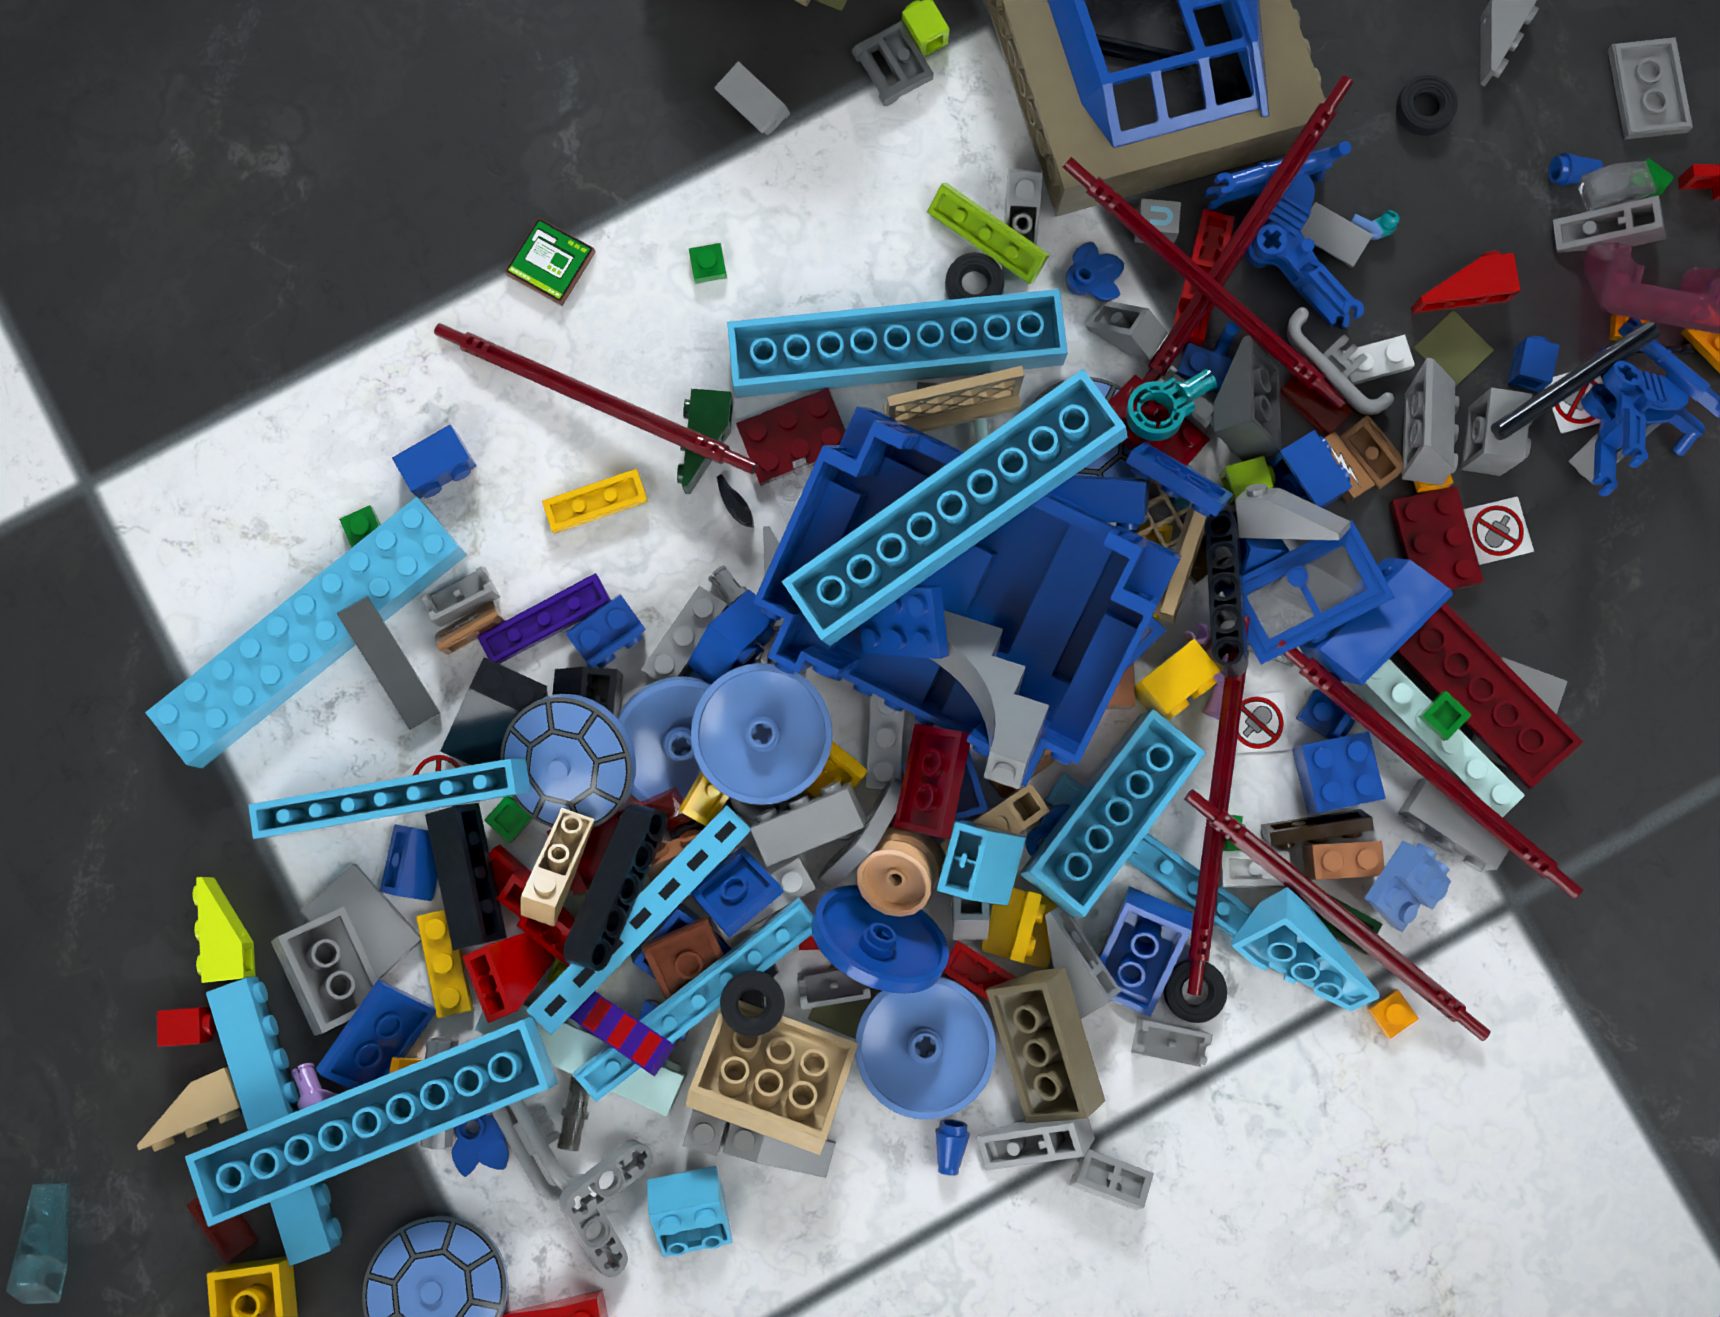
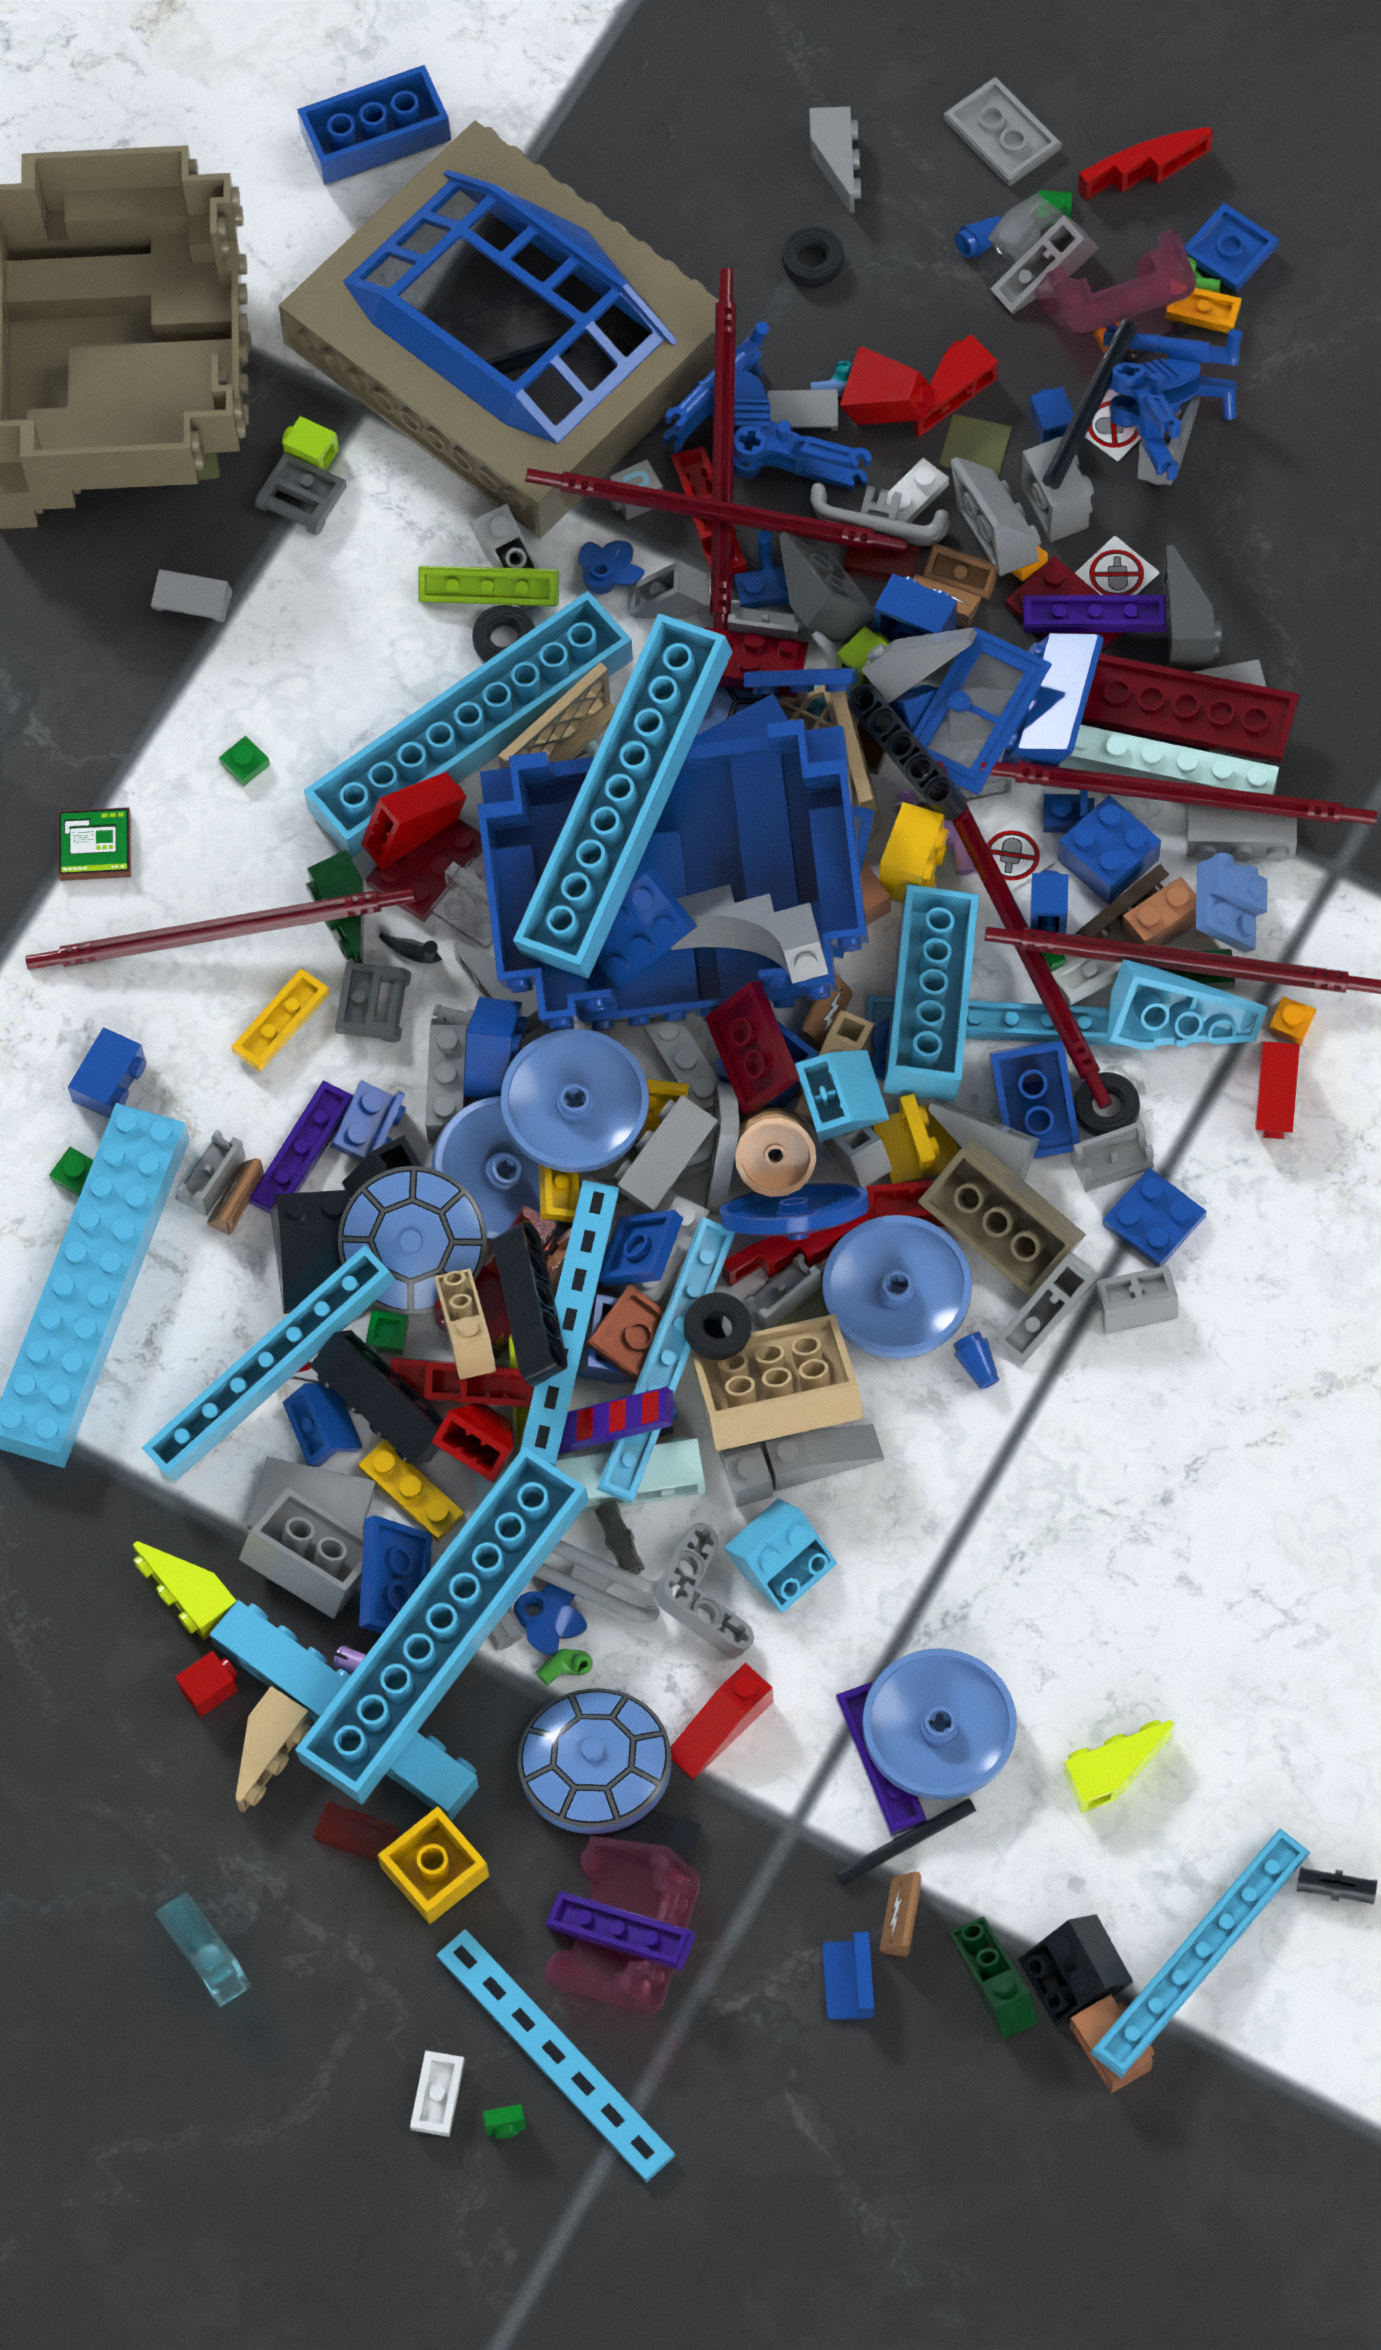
camera: 30 degrees left, 15 degrees down
(388, 662) = (186, 1259): dark grey tile -> none
(470, 1188) = (565, 1662): none -> bright green arm
(666, 524) = (360, 1001): none -> dark grey plate
(798, 398) = (411, 818): none -> red slope
(1171, 1113) = (1154, 1217): none -> blue plate
(1173, 397) = (754, 621): teal pin -> none
(1257, 796) = (1049, 901): none -> blue brick
(1344, 1069) = (1276, 1088): none -> red slope
(1411, 260) = (885, 391): none -> red slope
(1444, 715) = (1162, 738): green plate -> none
(1458, 560) = (1094, 613): none -> dark purple tile
(1533, 612) = (1190, 621): none -> dark grey slope

